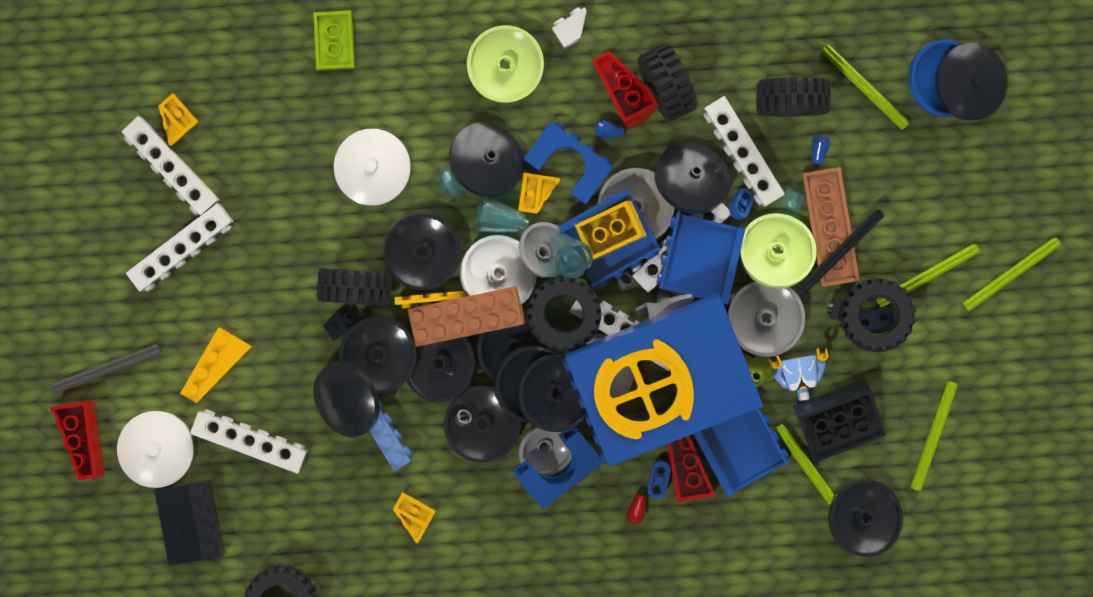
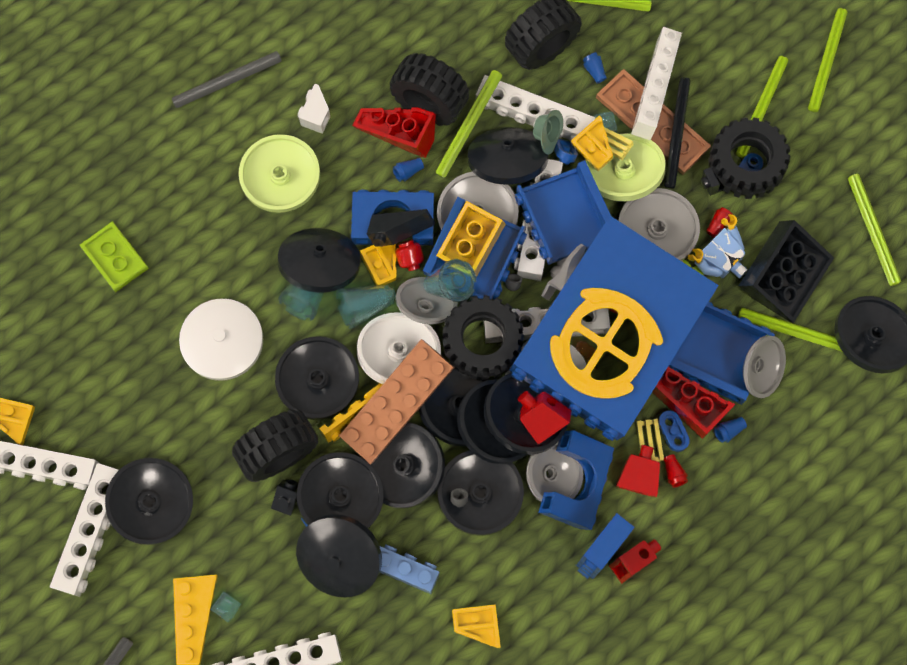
camera: 30 degrees left, 15 degrees down
(236, 258) = (148, 501): none -> black dish
(243, 374) = (226, 607): none -> clear light blue tile
(537, 531) = (604, 547): none -> blue arch
(550, 552) = (635, 560): none -> red torso
(560, 202) = (409, 255): none -> red head
(562, 176) = (397, 226): none -> black slope
(562, 408) = (543, 415): none -> red torso
(609, 493) = (641, 473): none -> red torso
(644, 459) = (647, 423): none -> light yellow tile
(682, 128) = (468, 123): none -> lime axle
(701, 508) = (729, 429): none -> blue cone
(736, 181) = (548, 130): none -> sand green piece
(760, 482) = (764, 366): none -> light grey dish
(765, 217) = (594, 144): none -> yellow wing
(777, 208) = (621, 139): none -> light yellow tile
(821, 342) = (715, 225): none -> red cone
(854, 200) = (656, 83): none -> white brick

